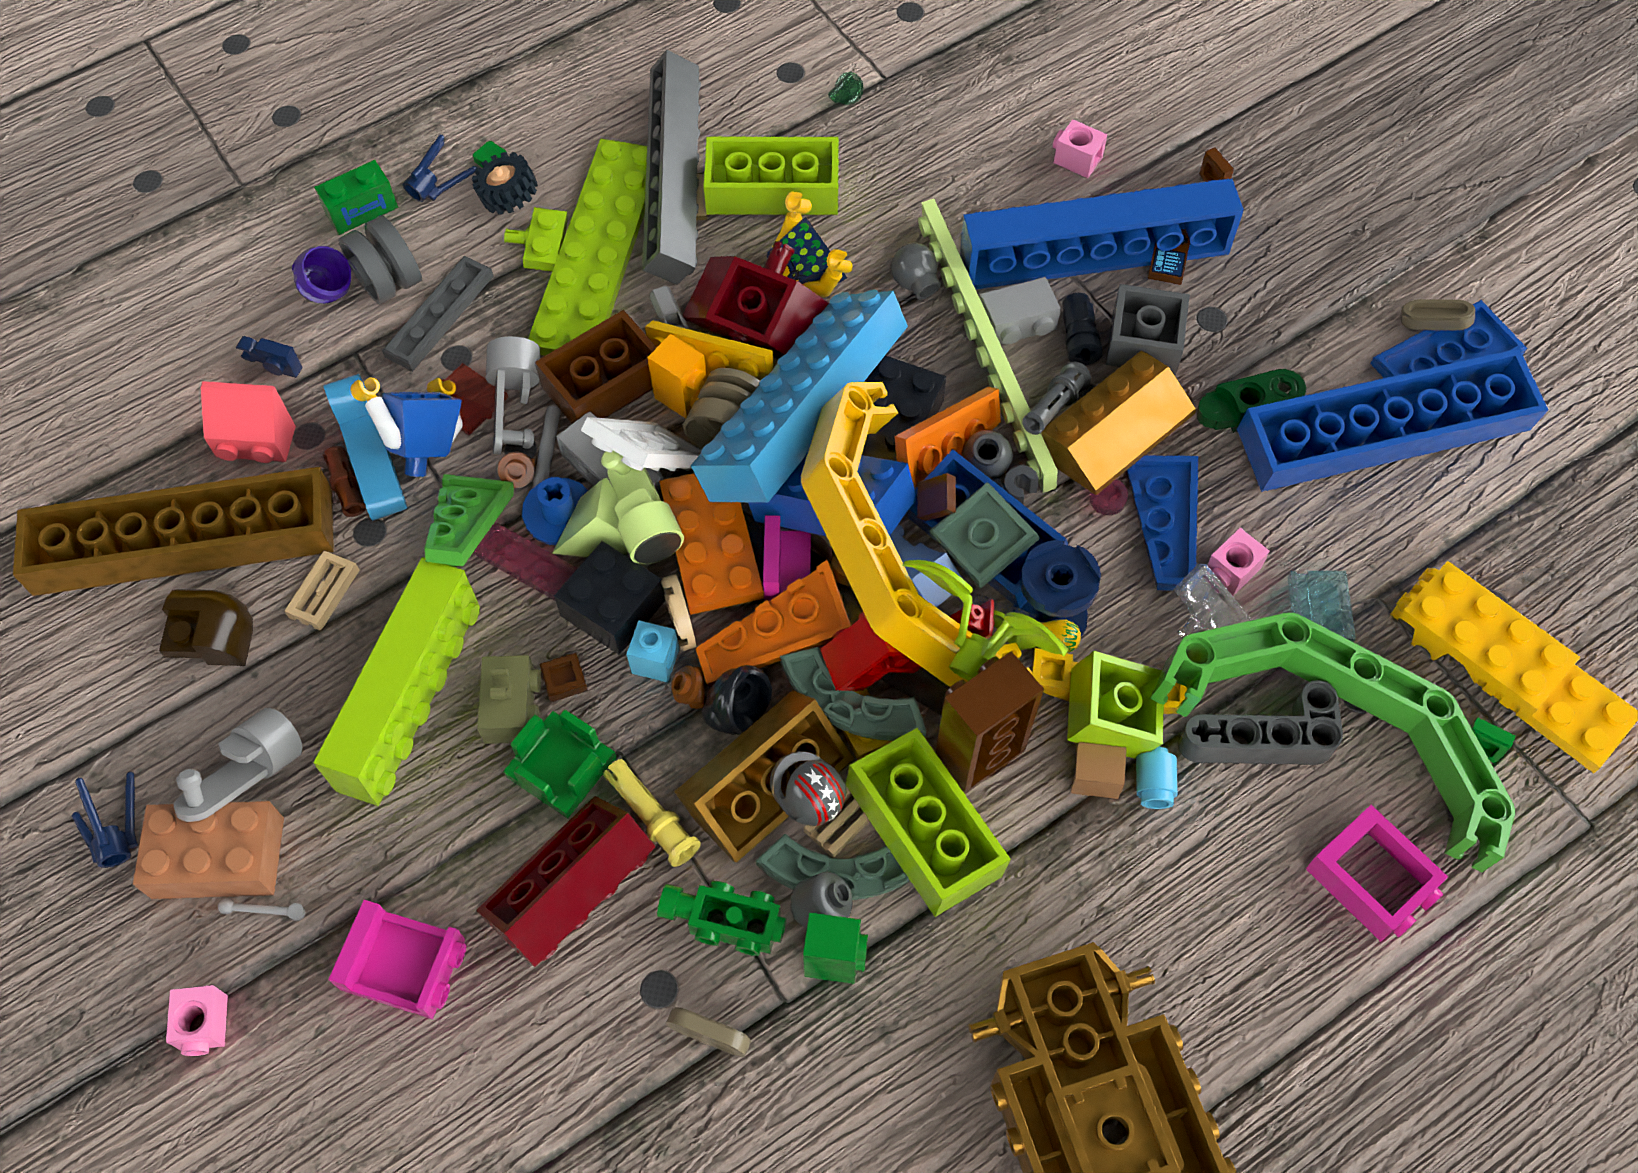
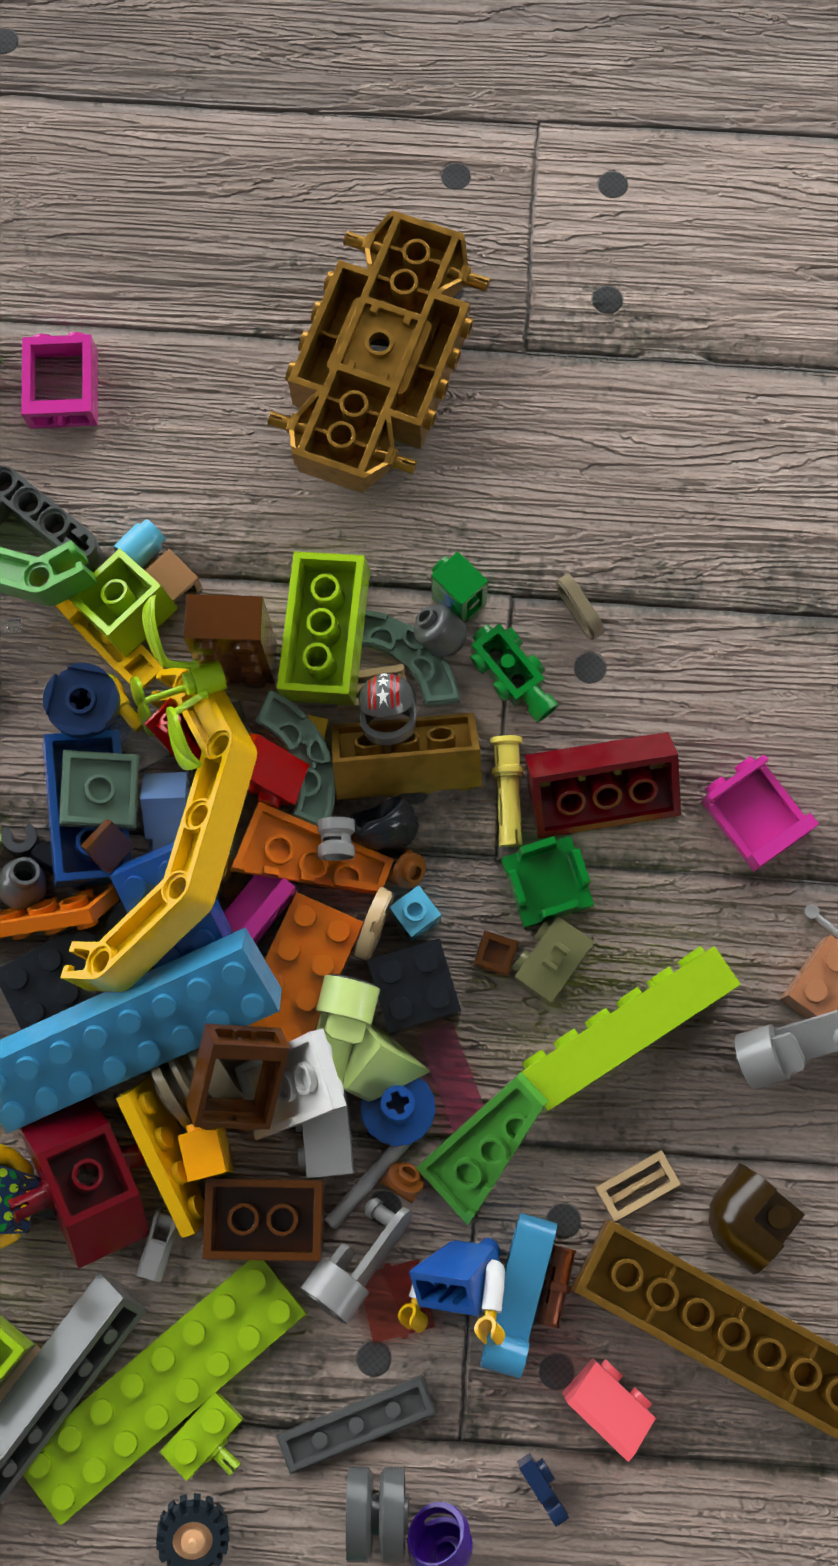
camera: 140 degrees left, 15 degrees up
(694, 395) = (244, 1044): none -> reddish brown window
(761, 645) = (336, 838): none -> light grey wheel

